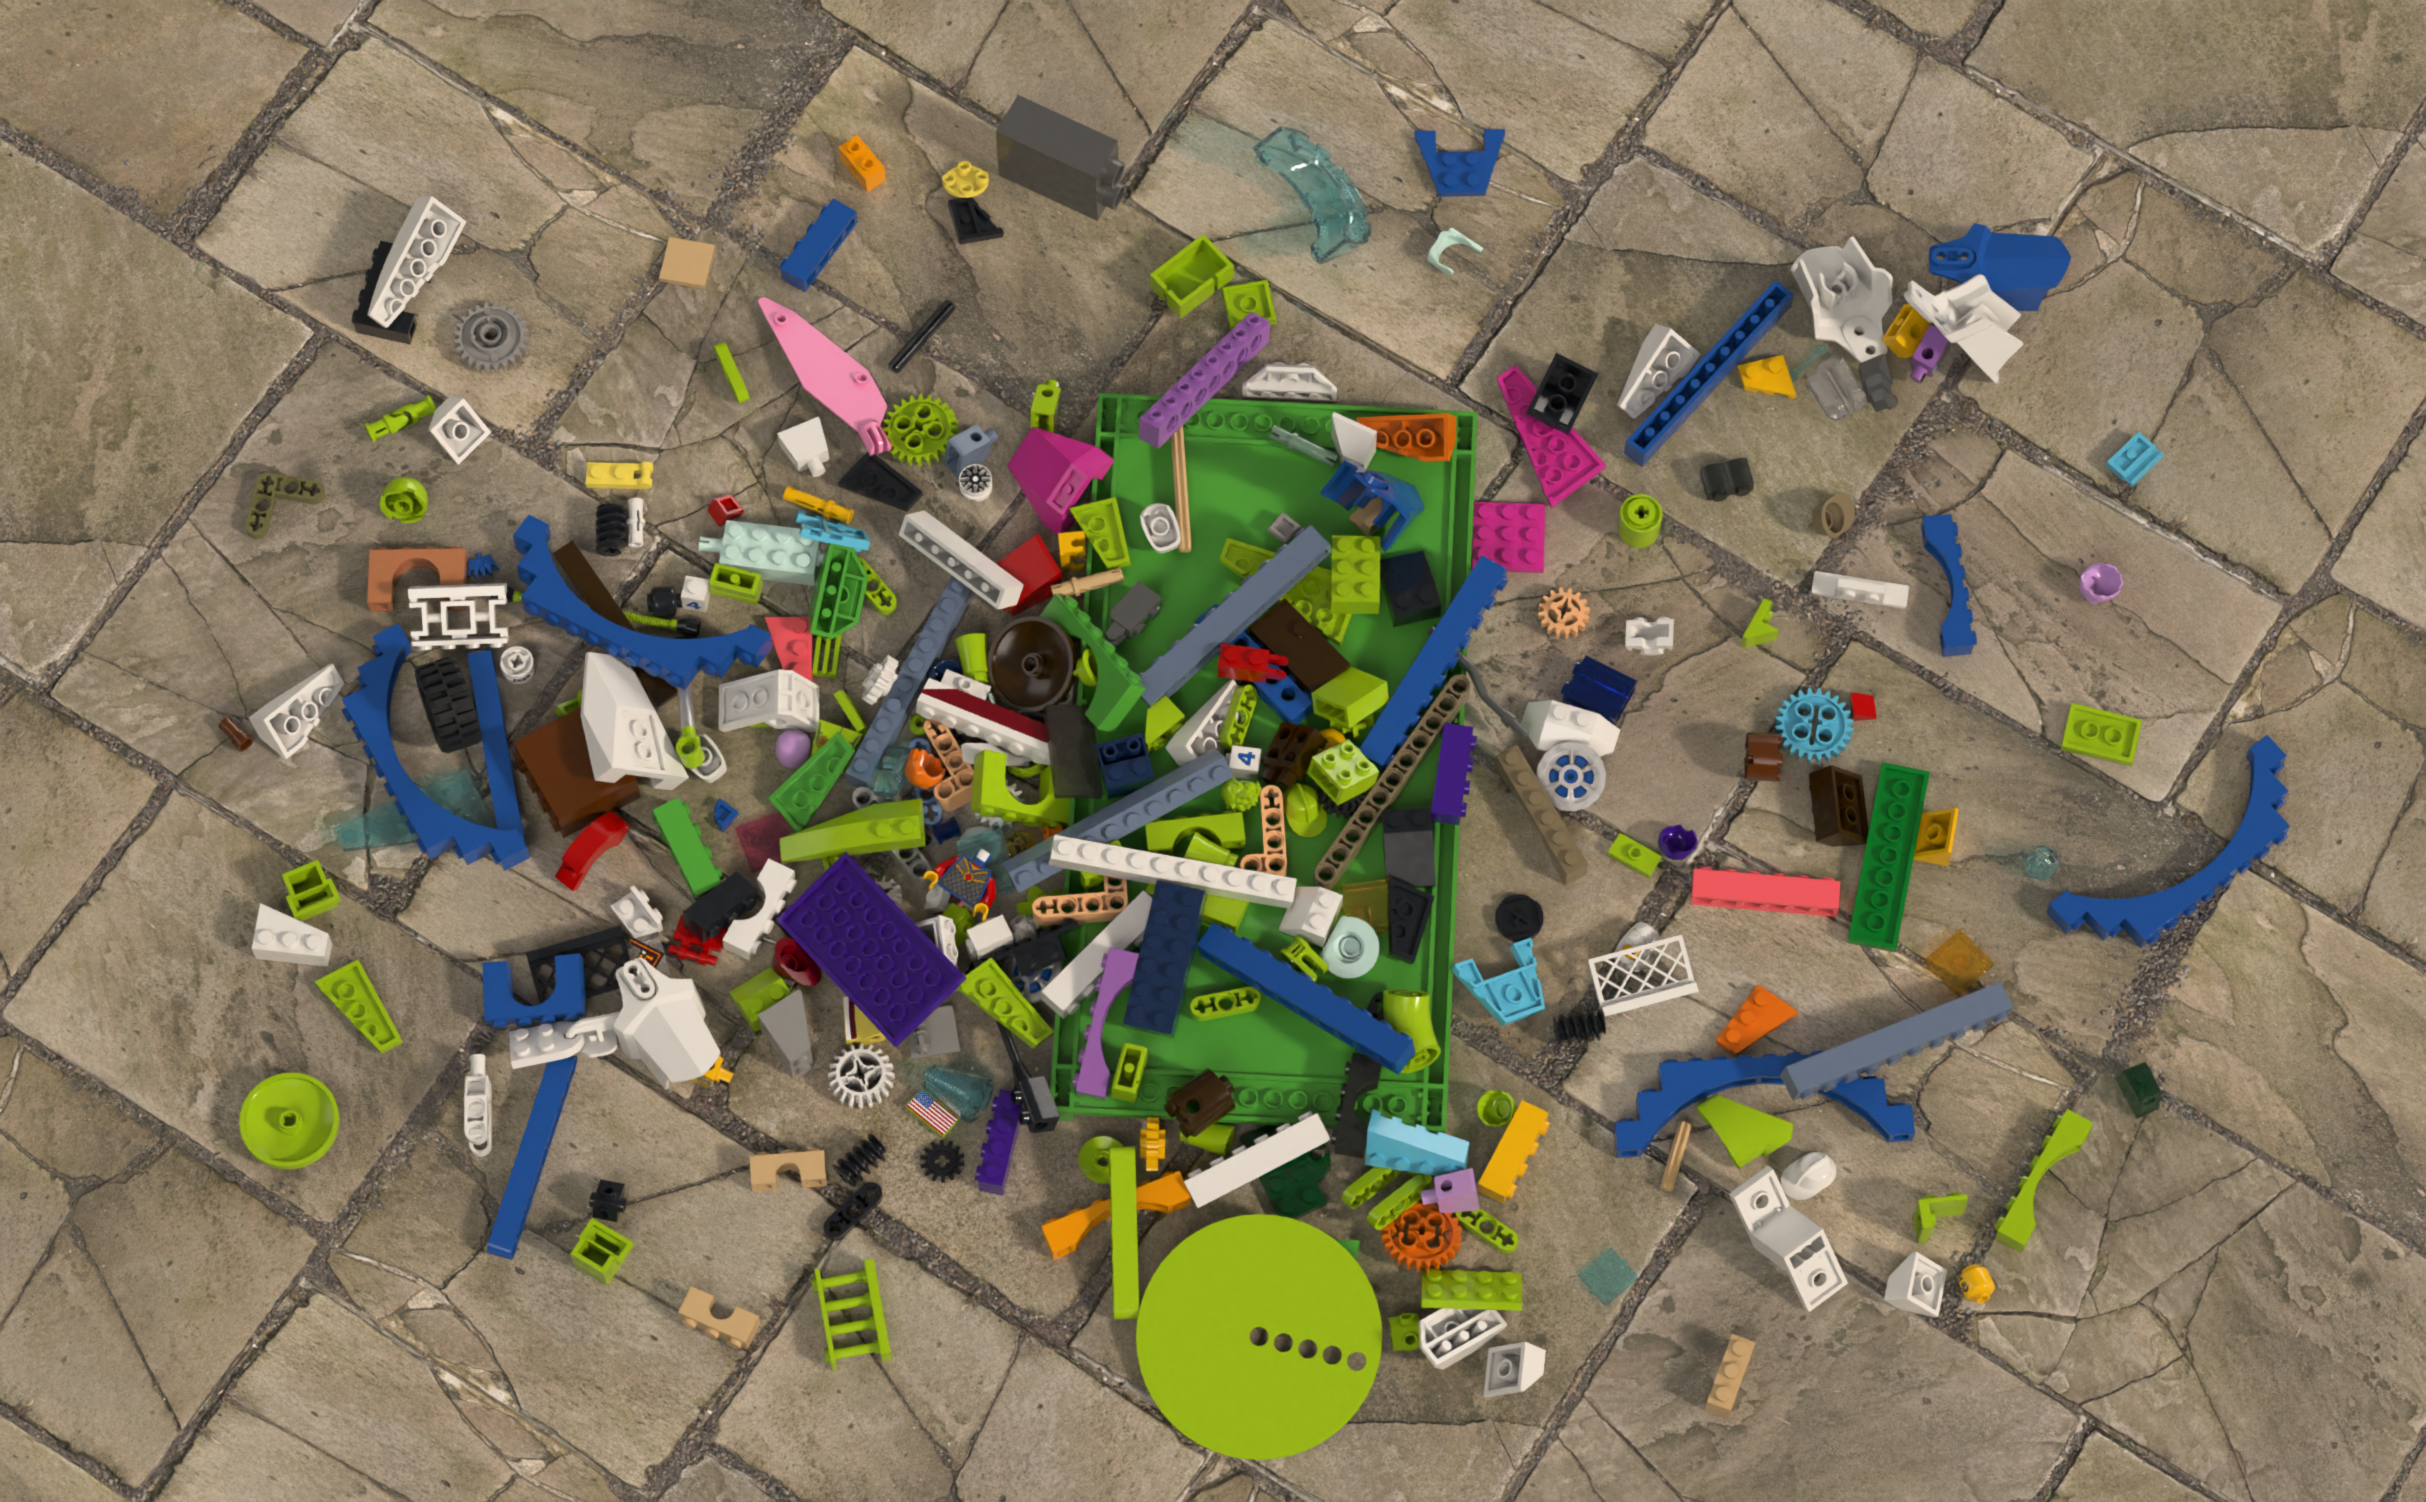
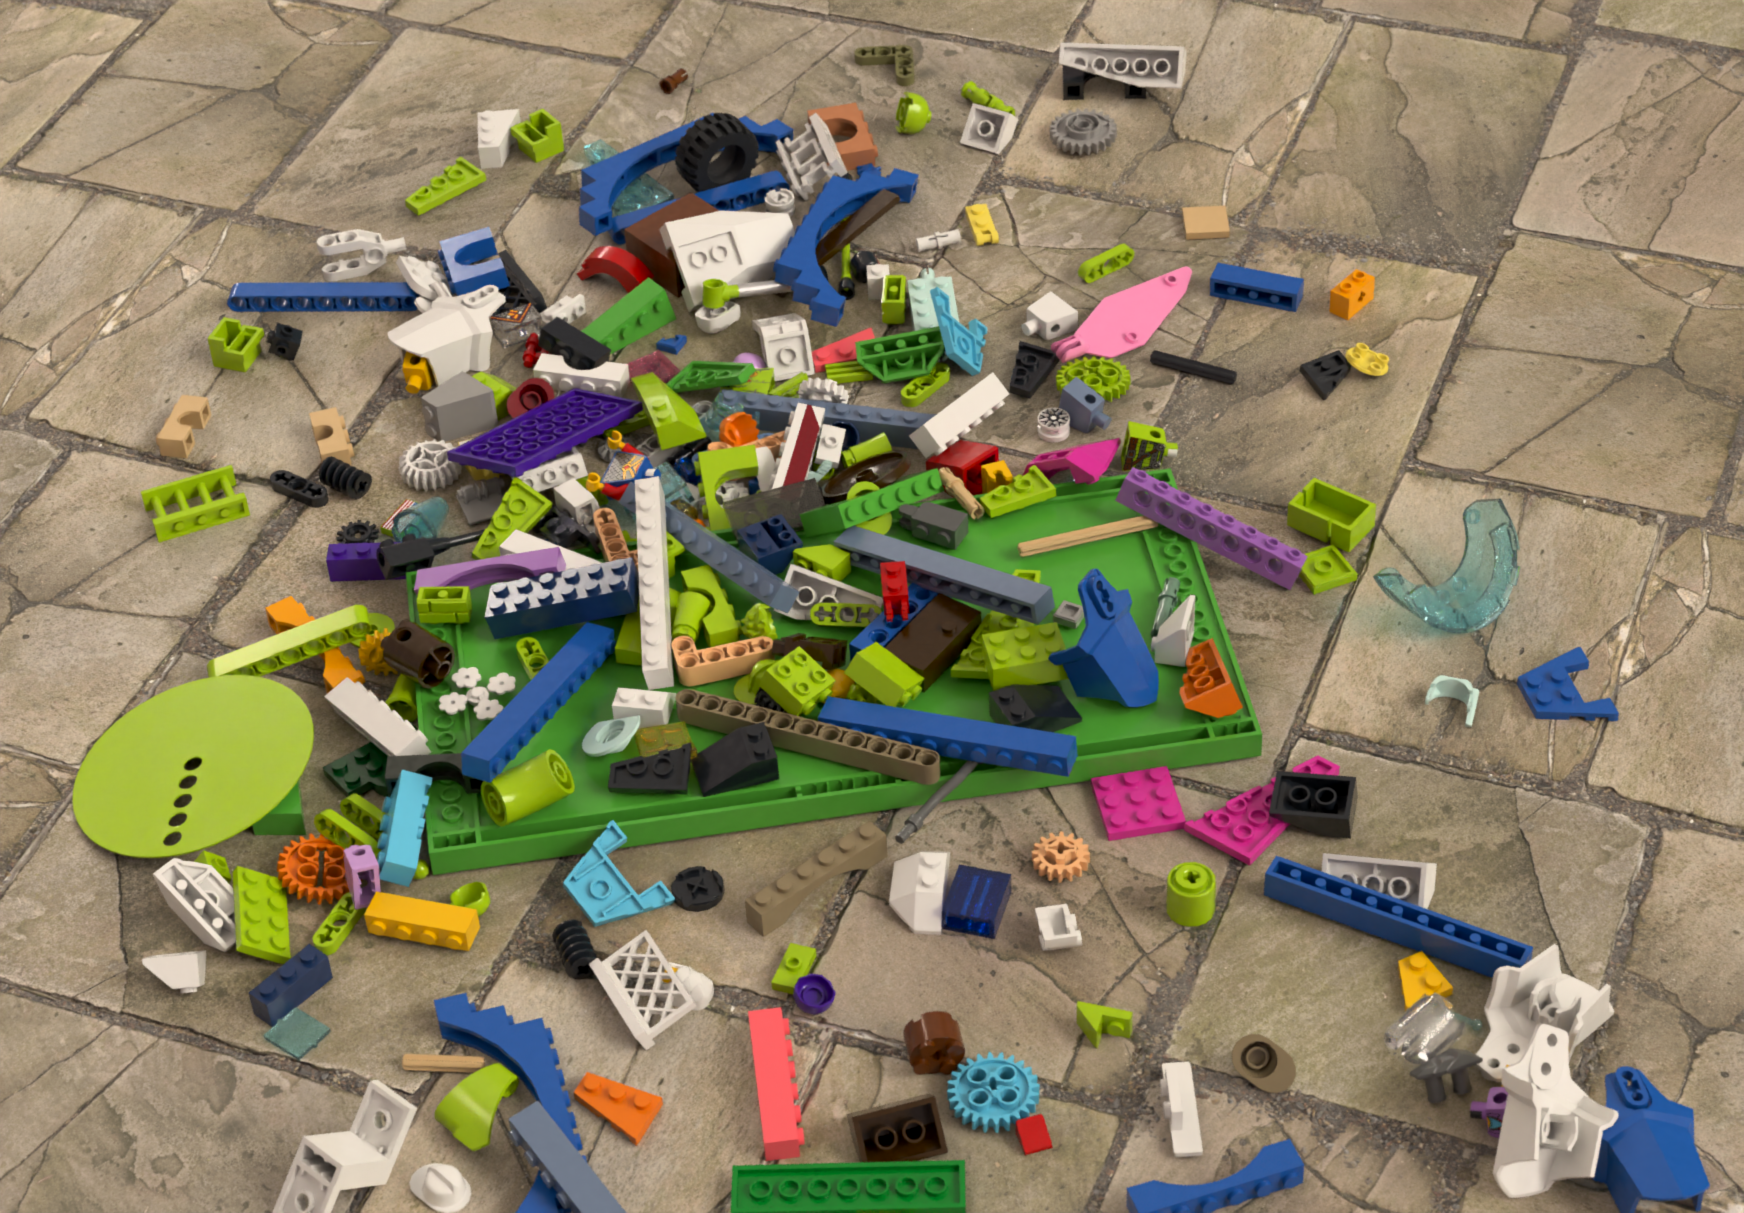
camera: 80 degrees right, 25 degrees down
(289, 1121) = (332, 165): lime dish -> none
(291, 716) = (693, 100): white wedge -> none
(609, 529) = (923, 223): black piece -> none
(724, 509) = (972, 288): red slope -> none
(819, 505) = (993, 341): yellow pin -> none
(1059, 158) = (1405, 388): dark grey brick -> none
(1160, 527) = (1032, 522): white piece -> none
(1244, 762) = (798, 621): white brick -> none
(1253, 1061) = (477, 696): none -> white plant
(1289, 383) = (1245, 604): white wedge -> none
(1299, 951) = (592, 708): lime piece -> none
(1452, 774) = (826, 775): dark purple brick -> none
(1561, 1272) = (290, 985): none -> dark blue brick
(1572, 776) = (866, 890): flat silver piece -> none
(1727, 479) = (1274, 964): pearl dark grey brick -> none
(1730, 1376) = (205, 1148): tan arch -> none

